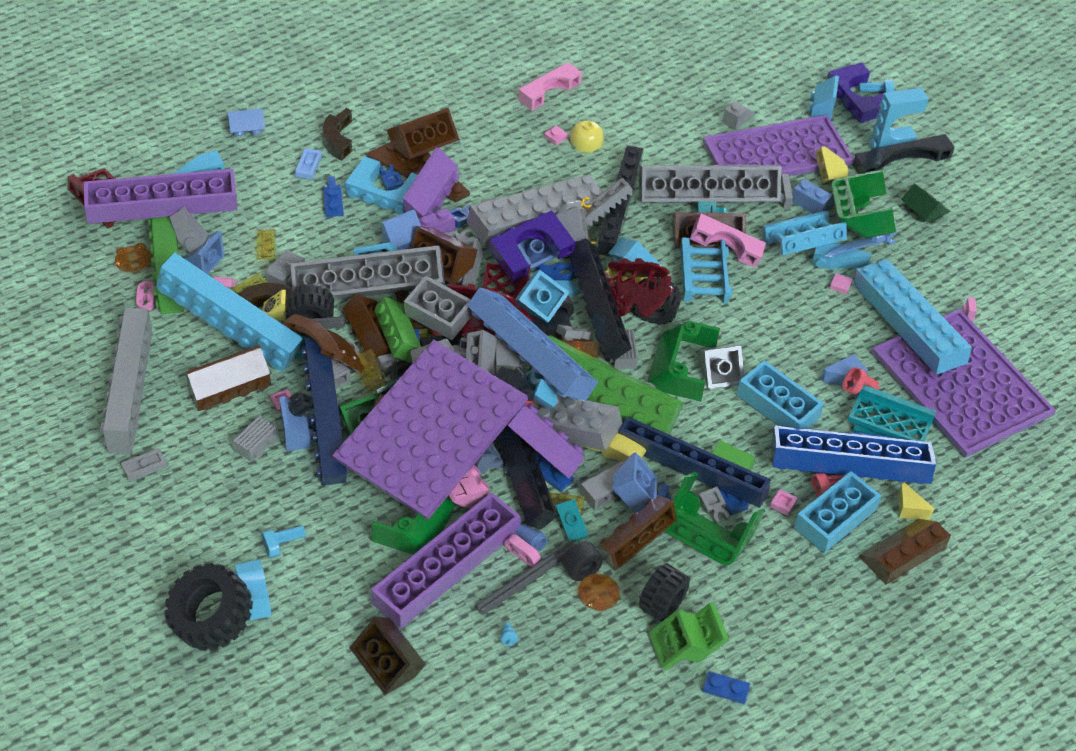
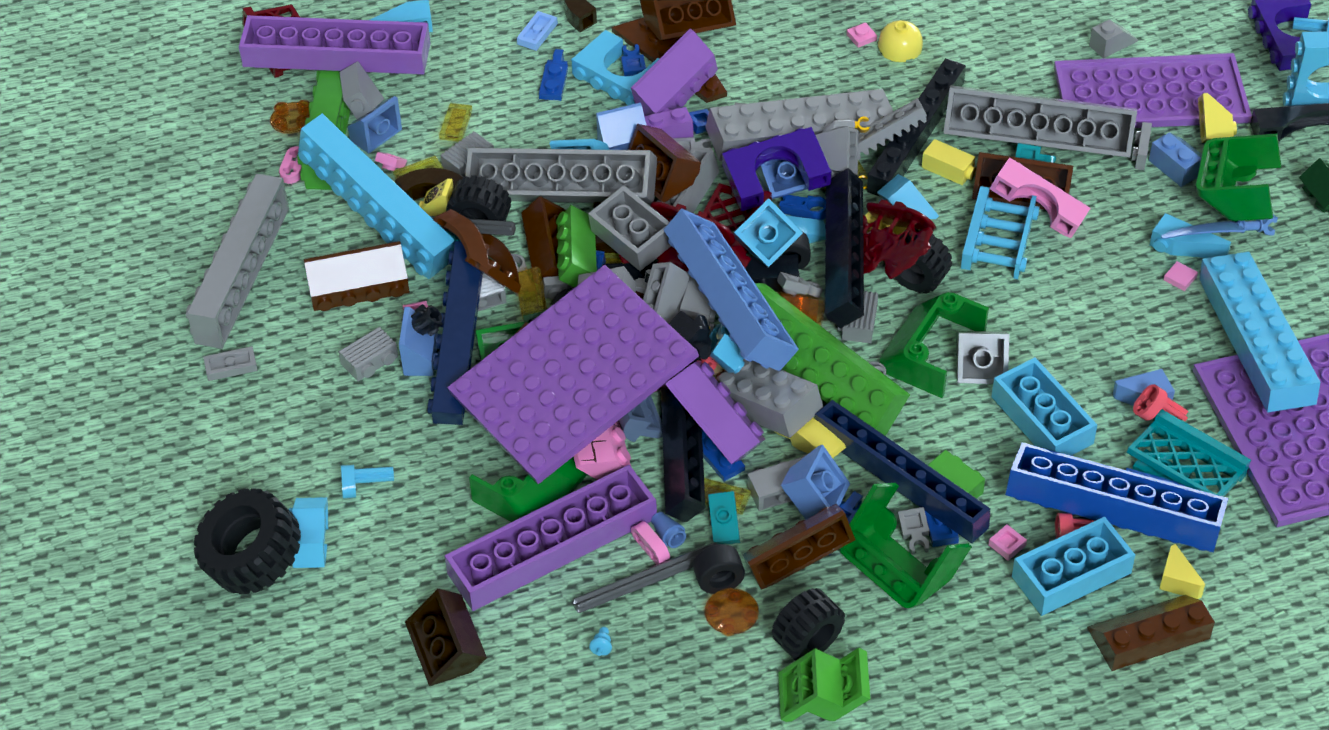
camera: 20 degrees right, 0 degrees up
(651, 223) = (949, 162): none -> light yellow brick
(804, 232) = (1148, 202): medium azure fence -> none
(824, 98) = (1235, 31): medium azure slope -> none

